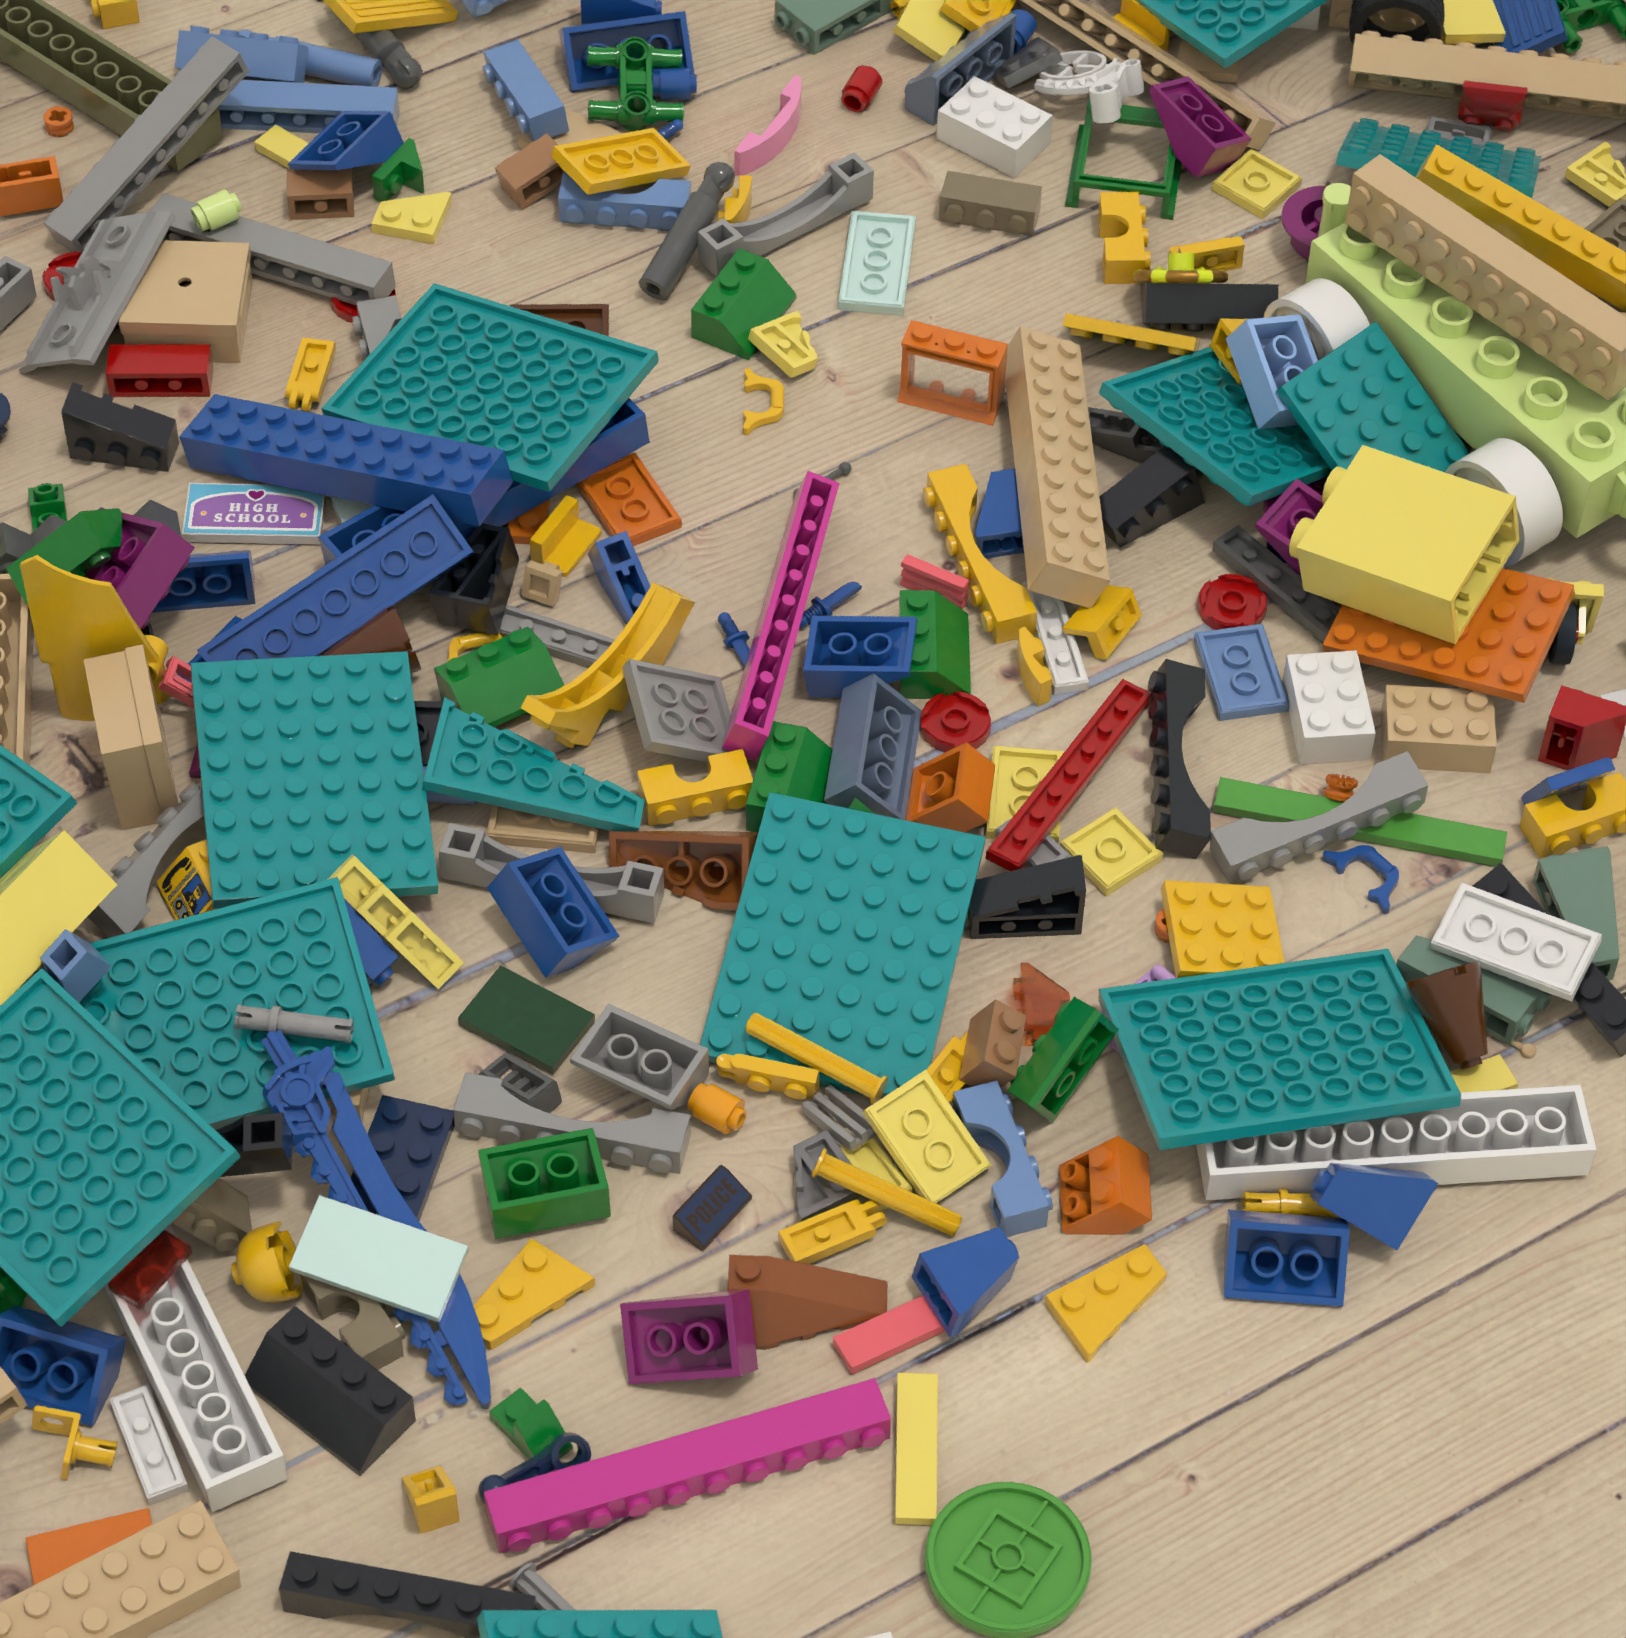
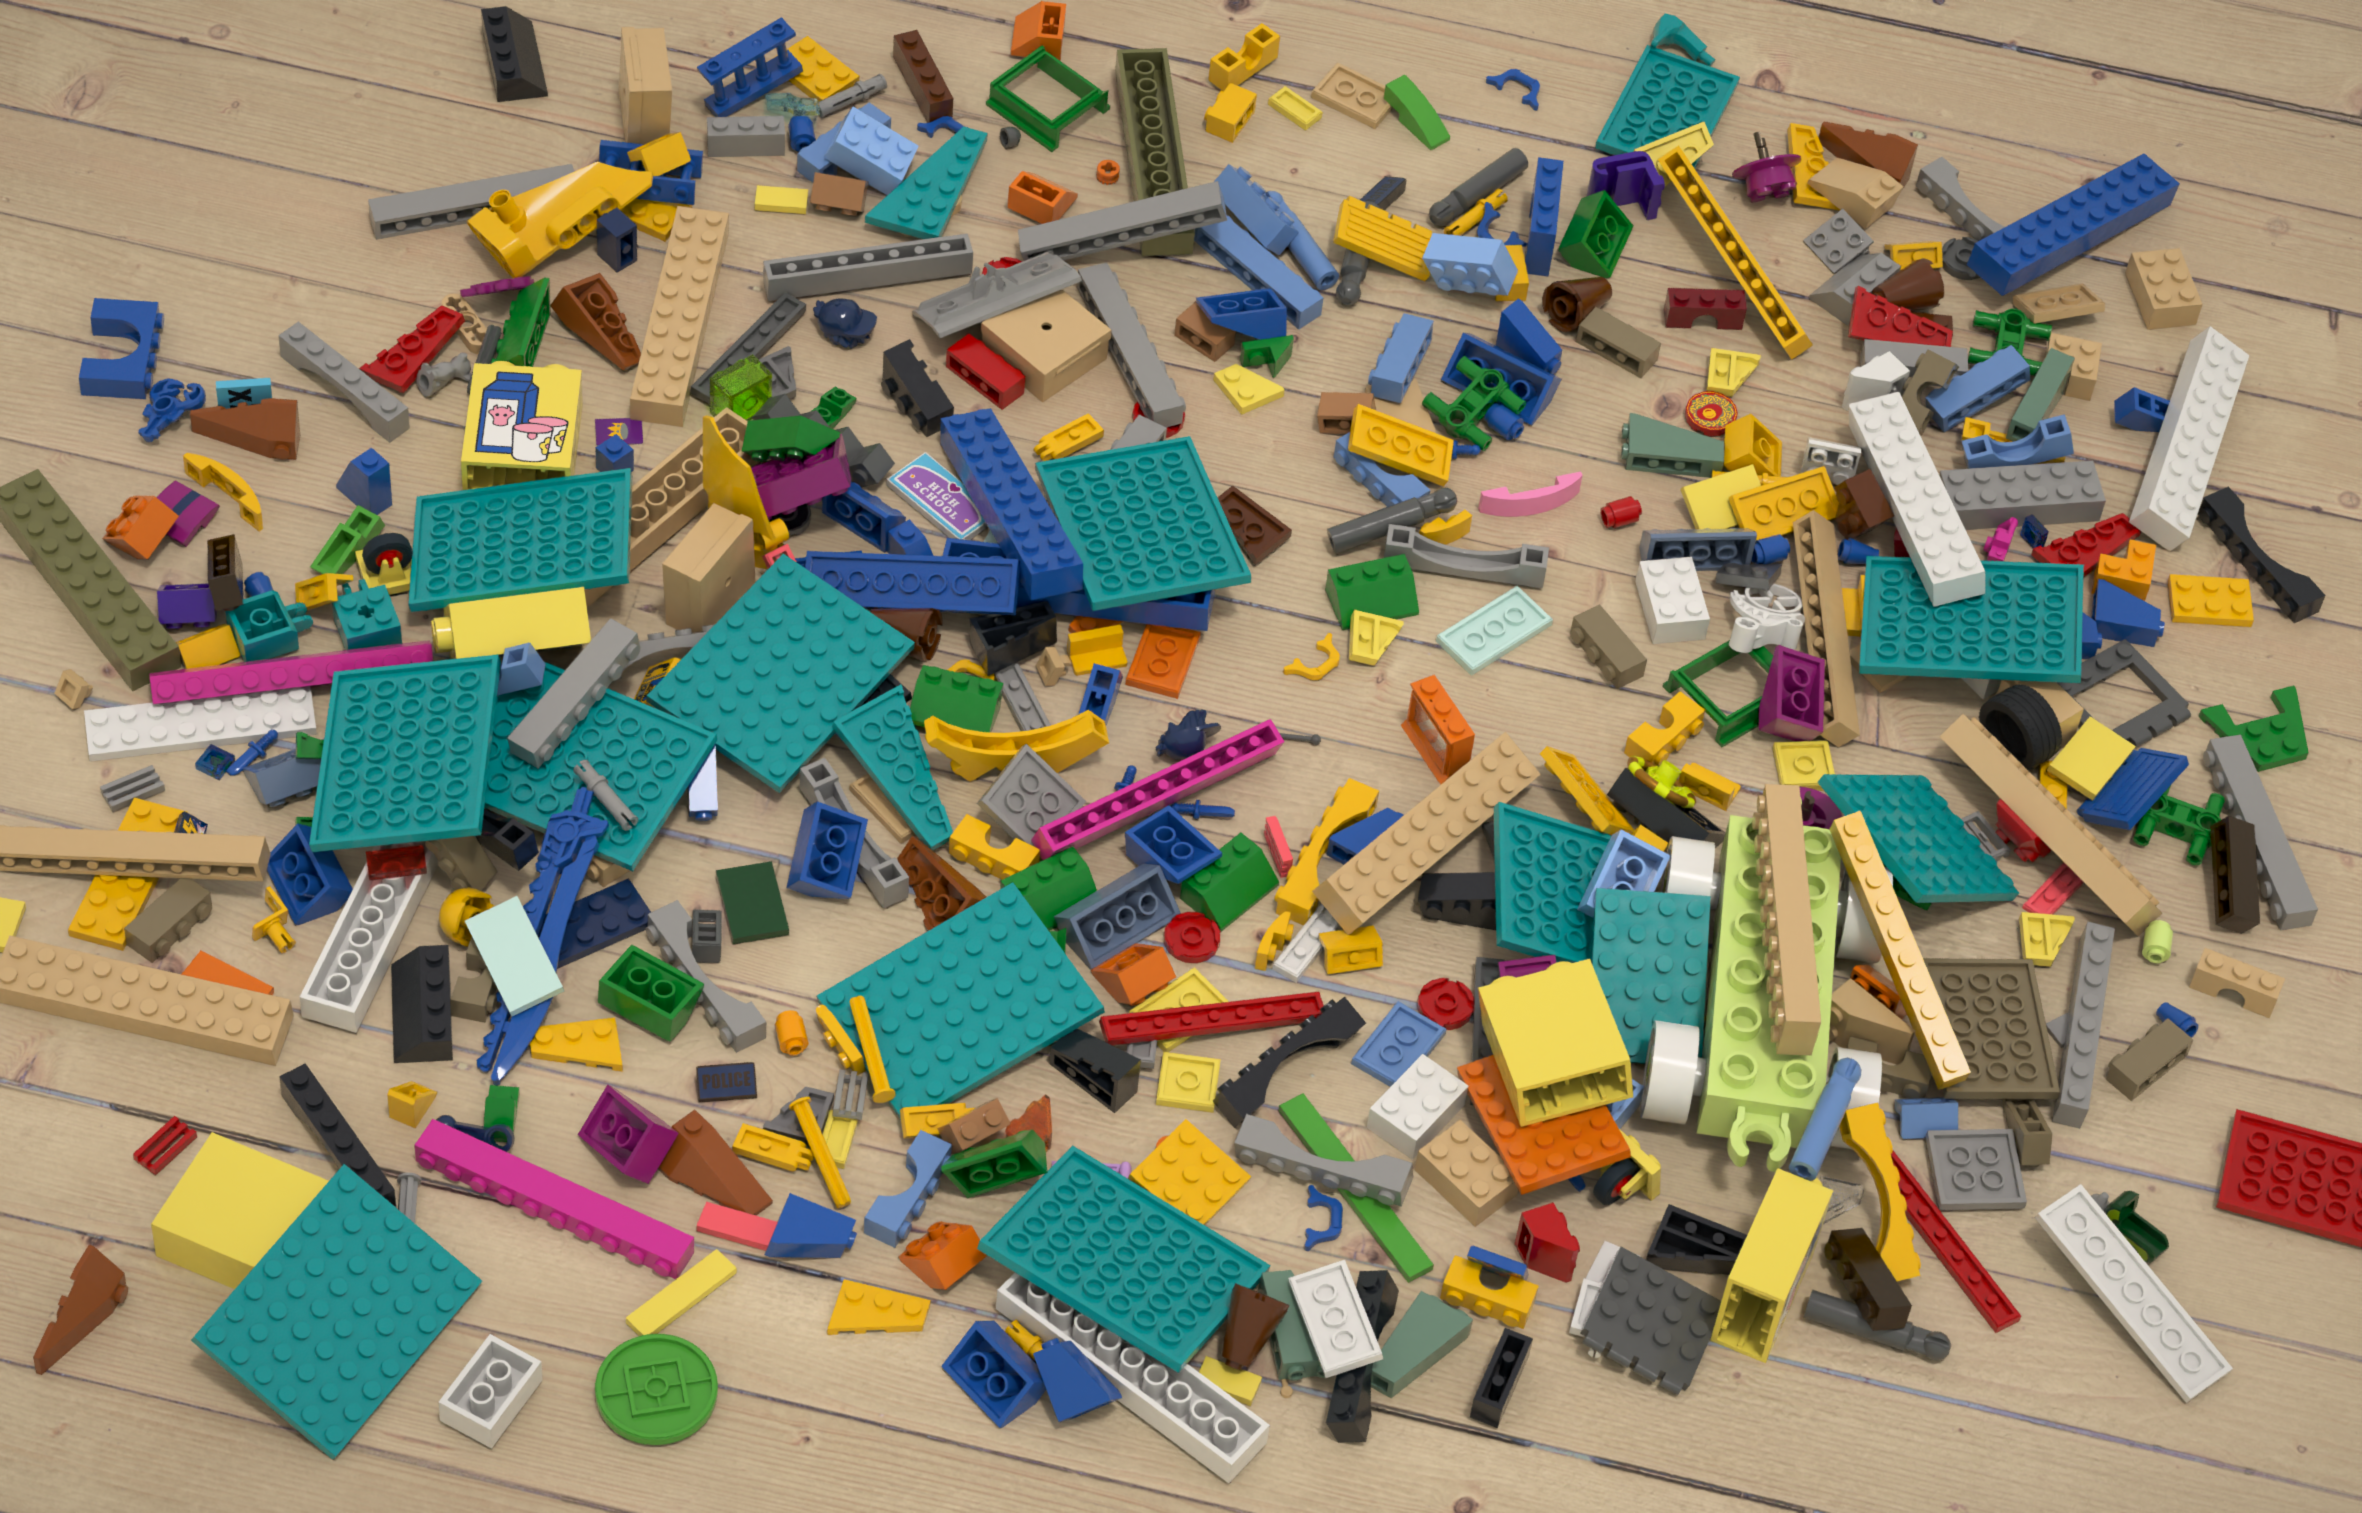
camera: 40 degrees right, 0 degrees up
(148, 1444) = (306, 957): white tile -> none
(150, 950) = (574, 693): none -> light grey brick
(216, 210) = (1116, 295): yellowish green brick -> none
(277, 572) = (907, 540): none -> blue slope
(279, 145) = (1220, 281): light yellow tile -> none
(396, 922) = (735, 787): light yellow slope -> none
(642, 1058) = (775, 971): light grey slope -> none
(743, 549) = (1187, 737): none -> dark blue hair
(926, 1138) = (878, 1143): light yellow tile -> none
(1339, 787) = (1364, 1152): orange bush -> none
(1559, 137) = (2054, 892): none -> coral tile

